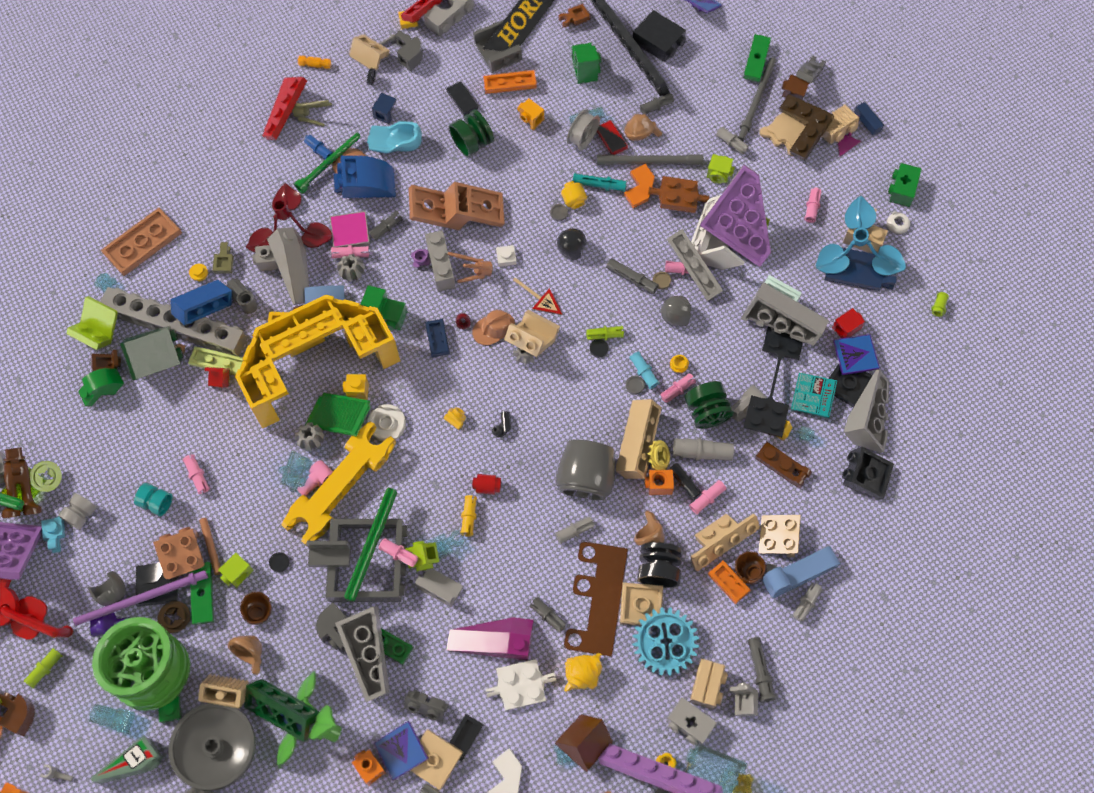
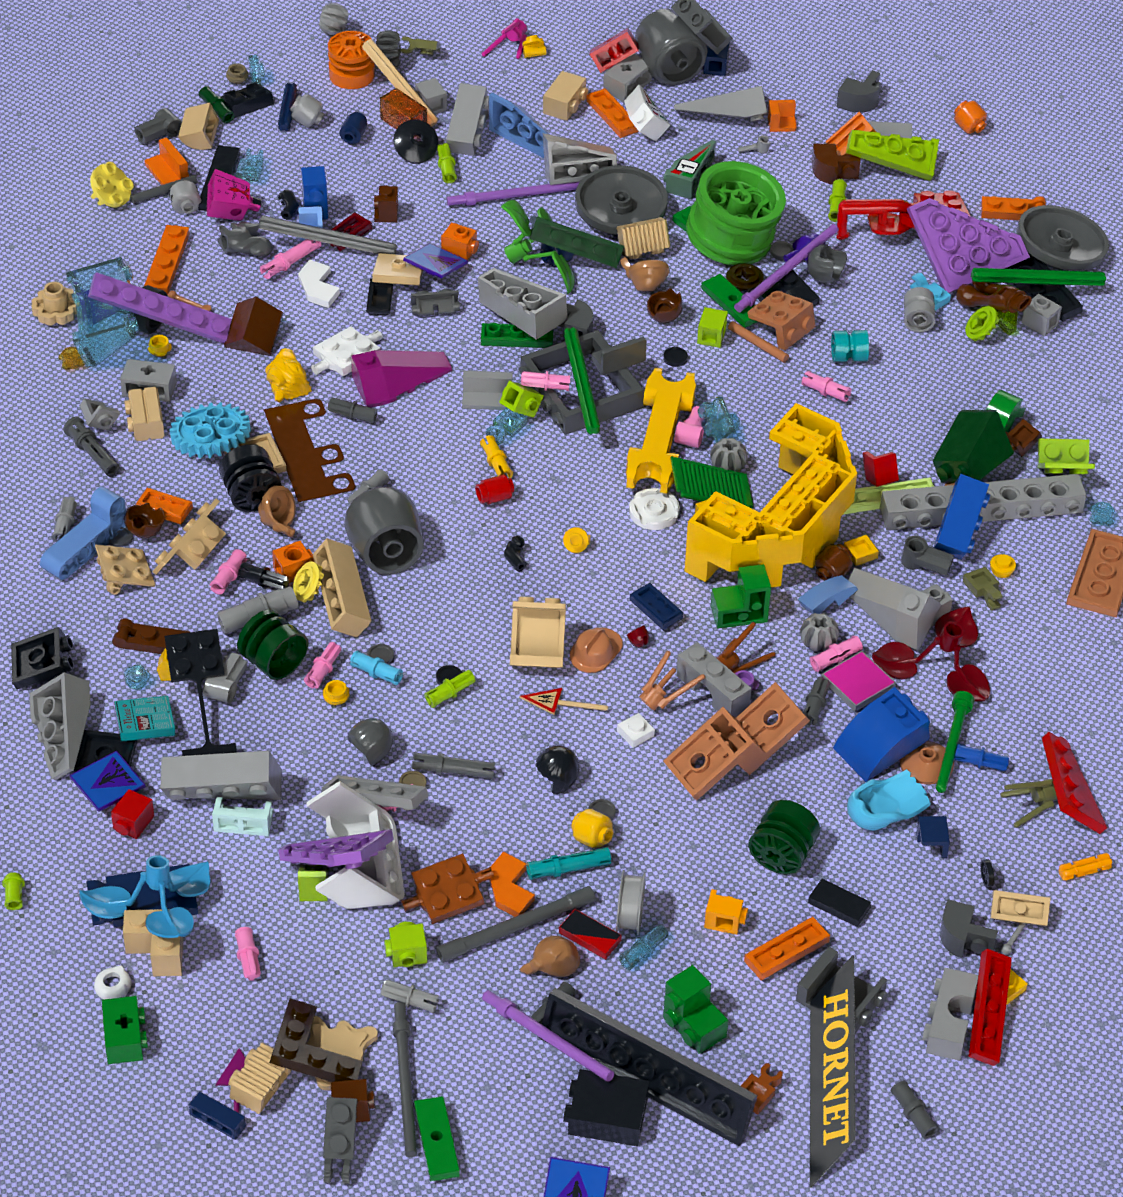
camera: 150 degrees right, 20 degrees down
(420, 275) = (731, 659): none -> dark orange plant
(682, 110) = (509, 1010): none -> medium lavender bar

